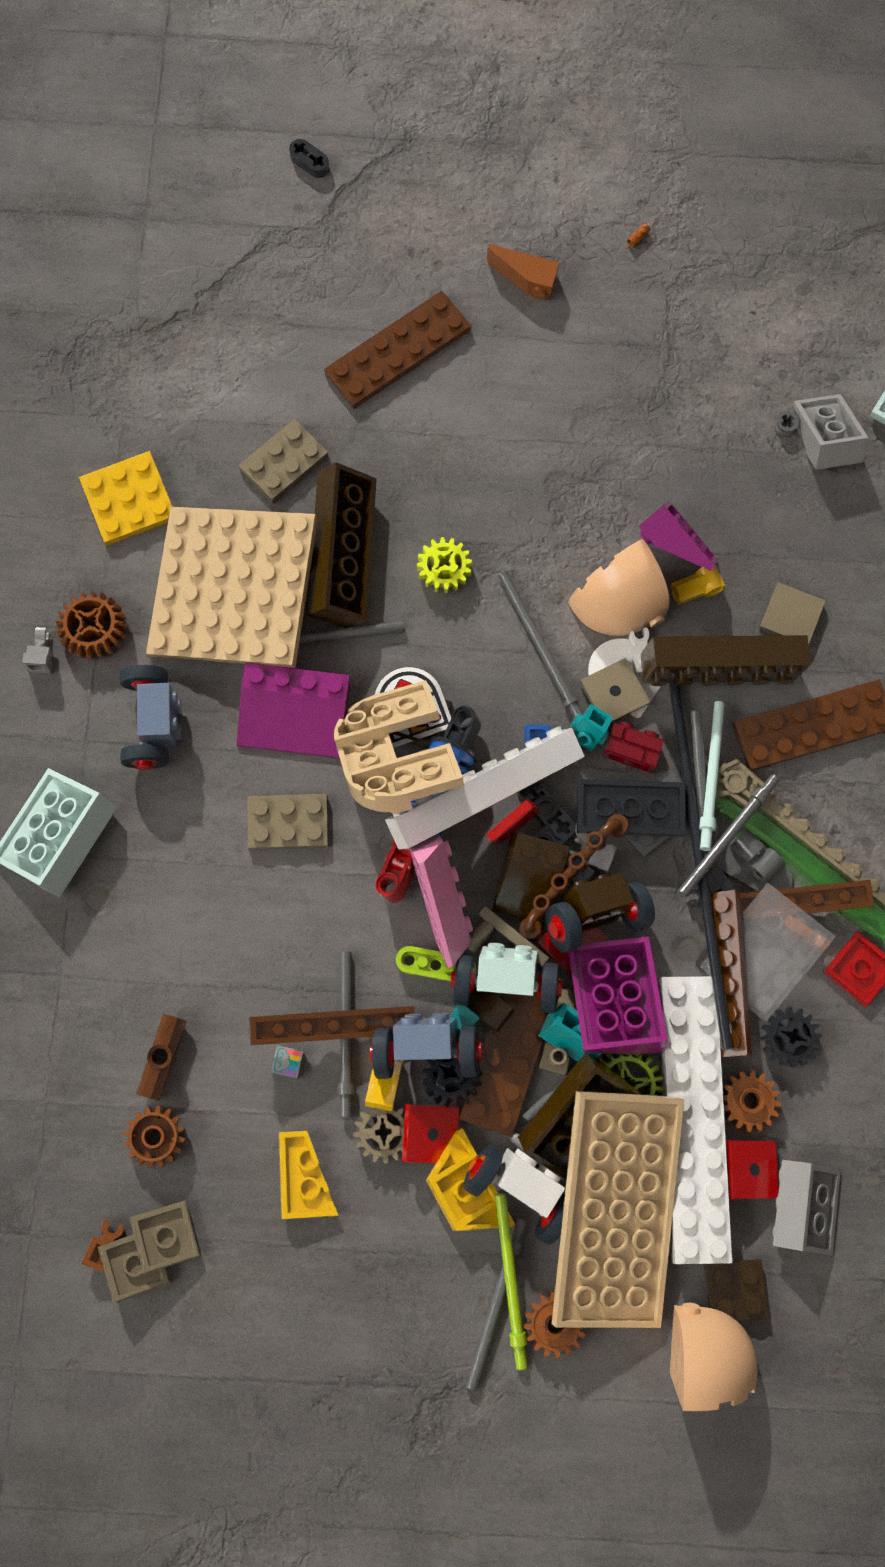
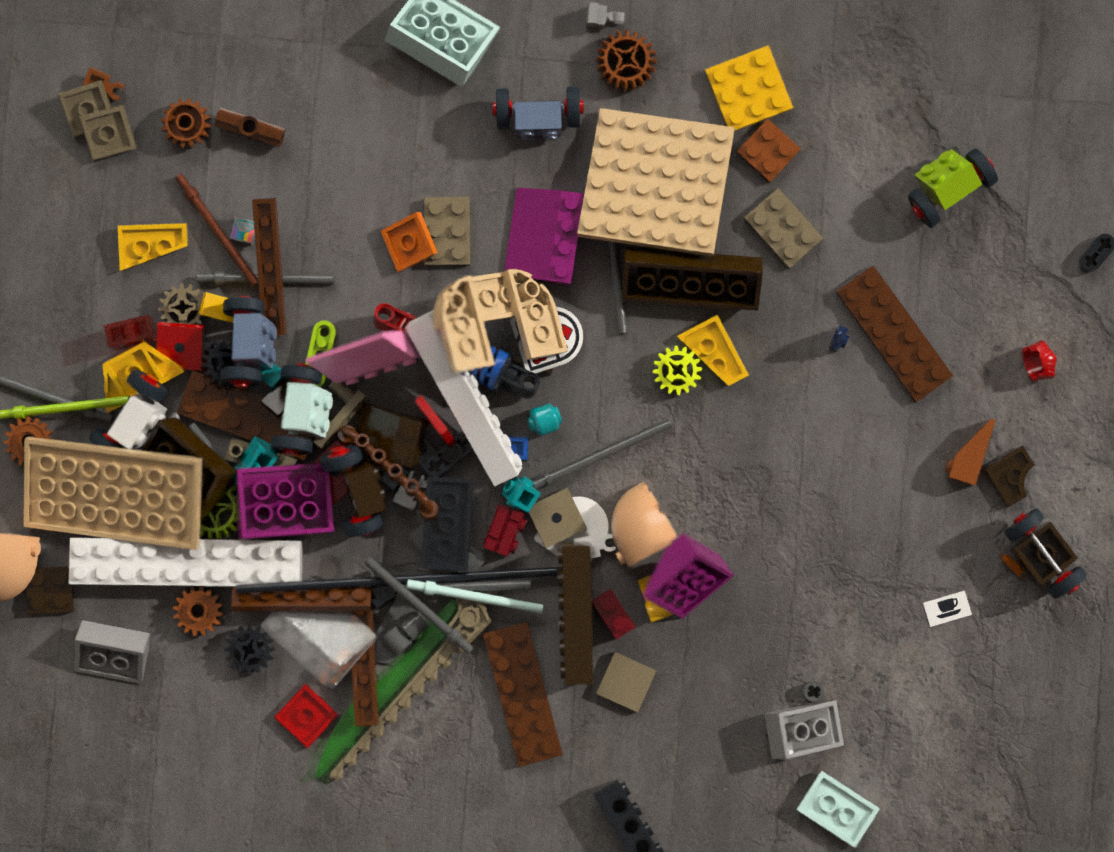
camera: 95 degrees right, 10 degrees up
(197, 476) = (768, 150): none -> dark orange plate
(236, 290) = (949, 181): none -> lime brick
(243, 1127) = (192, 195): none -> copper bar
(301, 862) = (409, 241): none -> orange plate
(404, 400) = (839, 339): none -> dark blue plate
(415, 1197) = (130, 332): none -> clear red brick
(419, 526) = (715, 349): none -> yellow wing
(425, 206) = (1039, 361): none -> red hair
(504, 705) = (544, 419): none -> teal head
(545, 238) = (1009, 475): none -> dark brown tile
(630, 195) = (1044, 554): none -> brick
(687, 297) = (947, 608): none -> white sticker
(723, 622) = (613, 614): none -> dark red brick
(752, 1169) = (143, 607): red tile -> none

